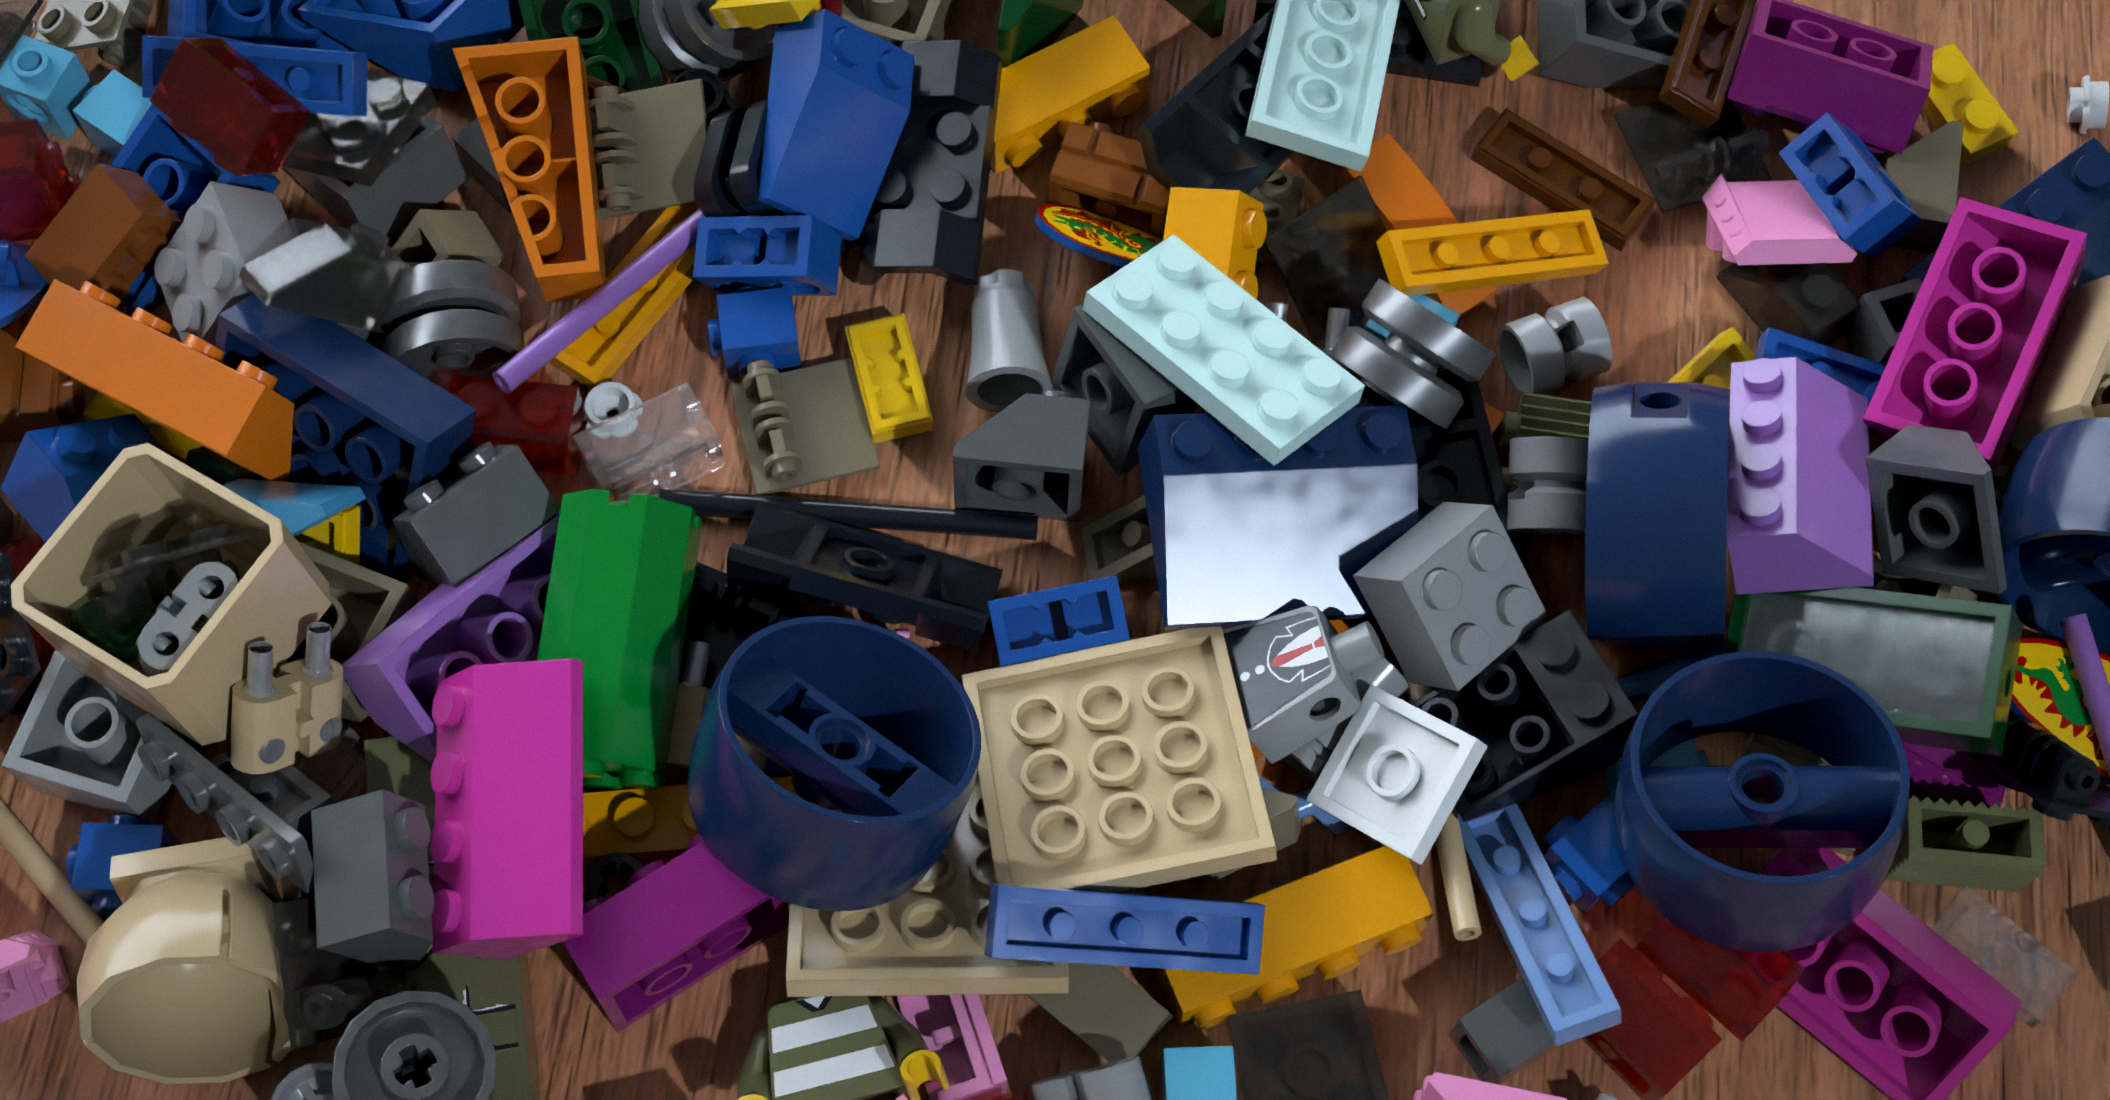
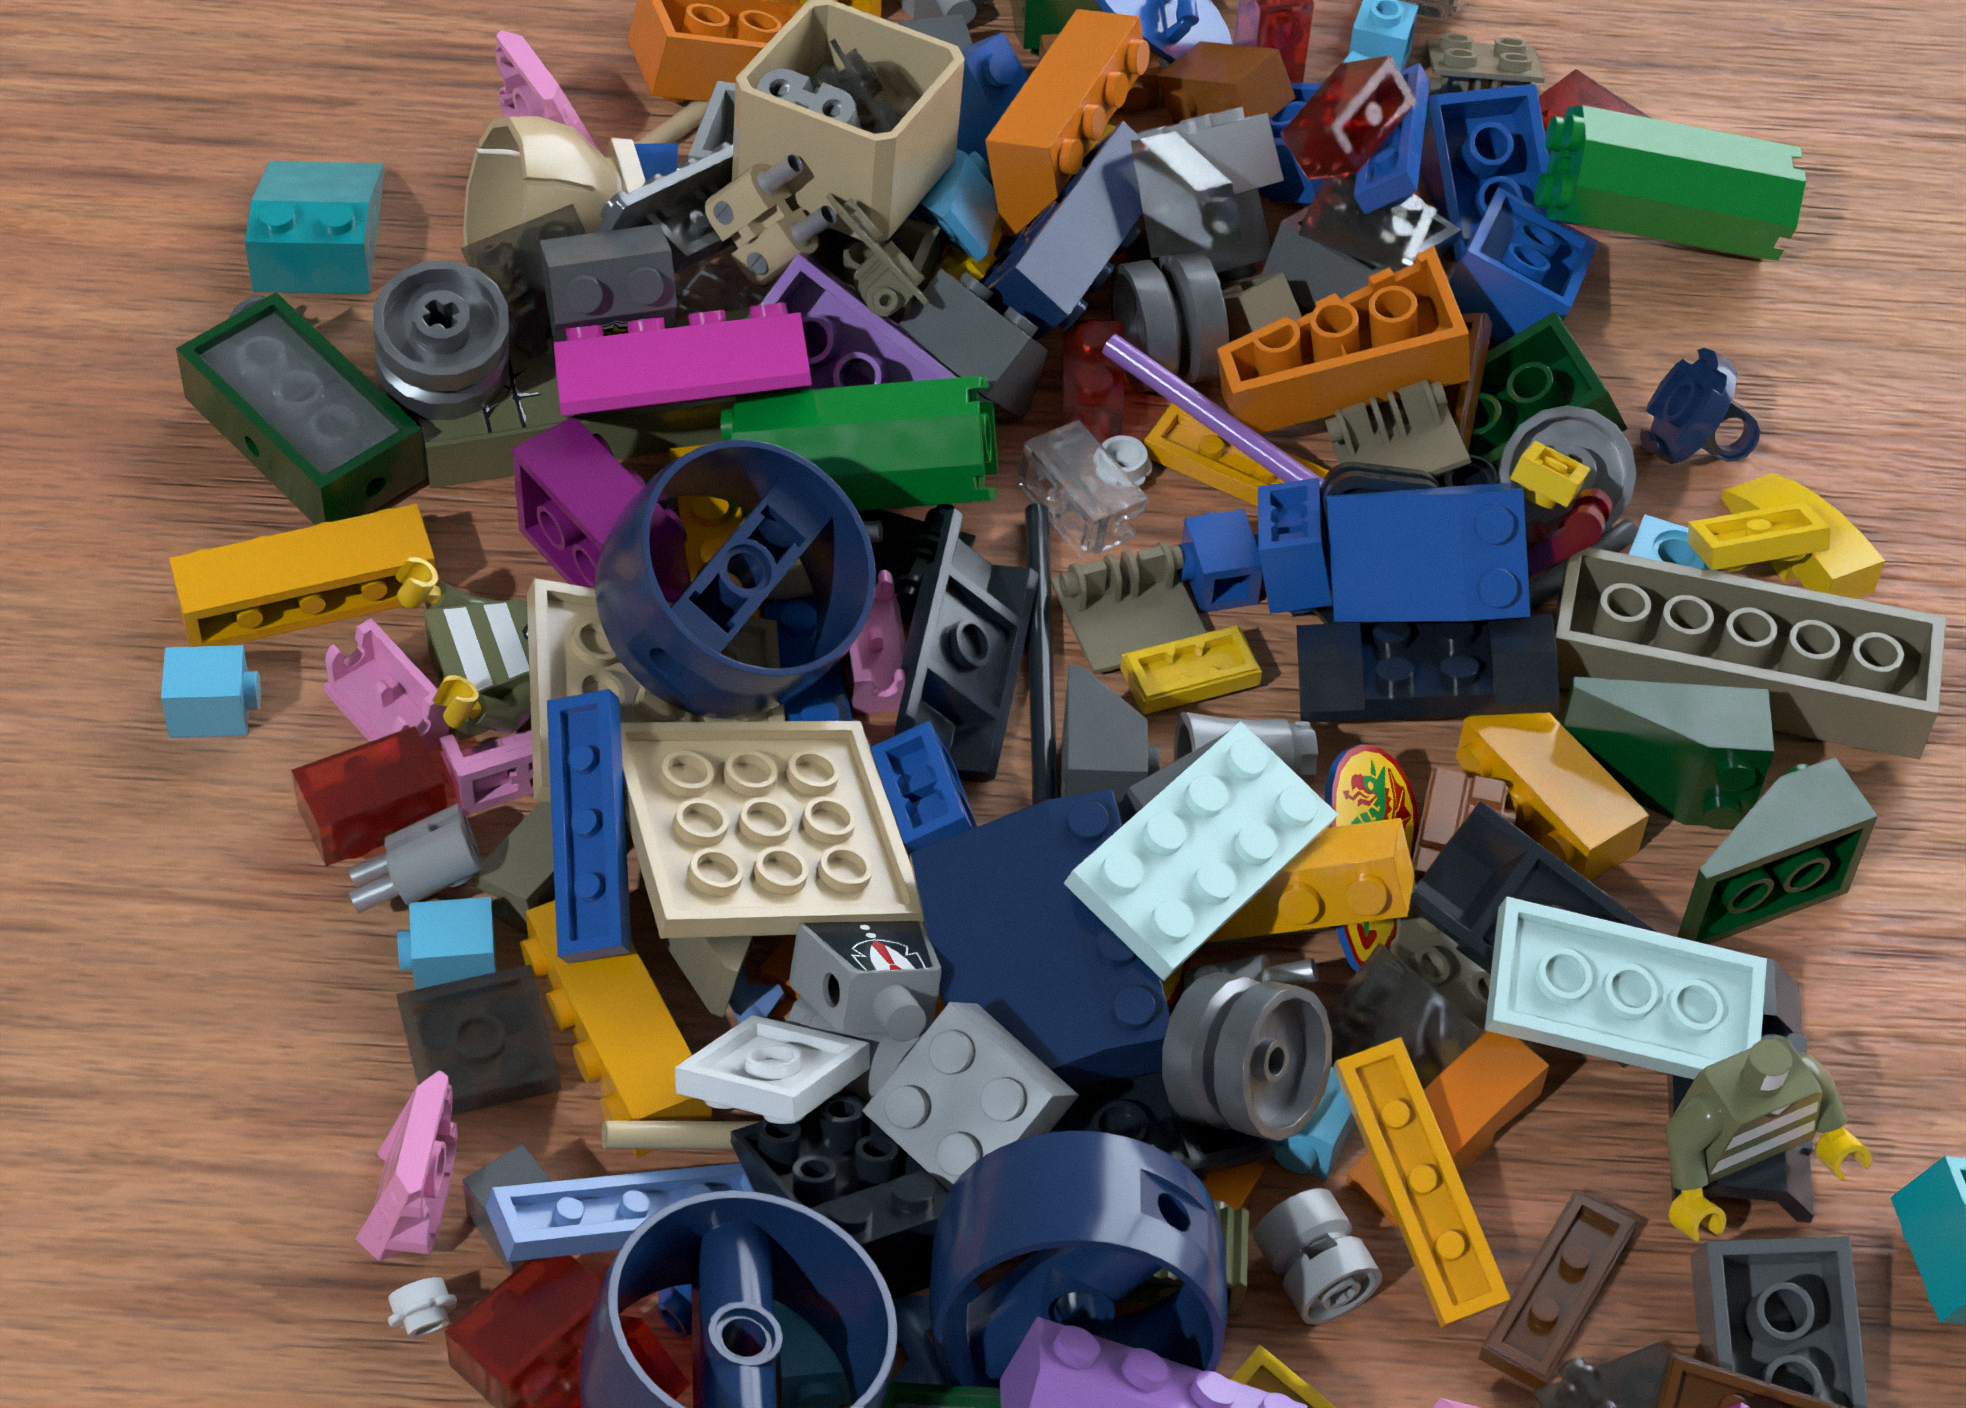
camera: 85 degrees right, 15 degrees down
(394, 591) = (887, 276): none -> dark tan hinge

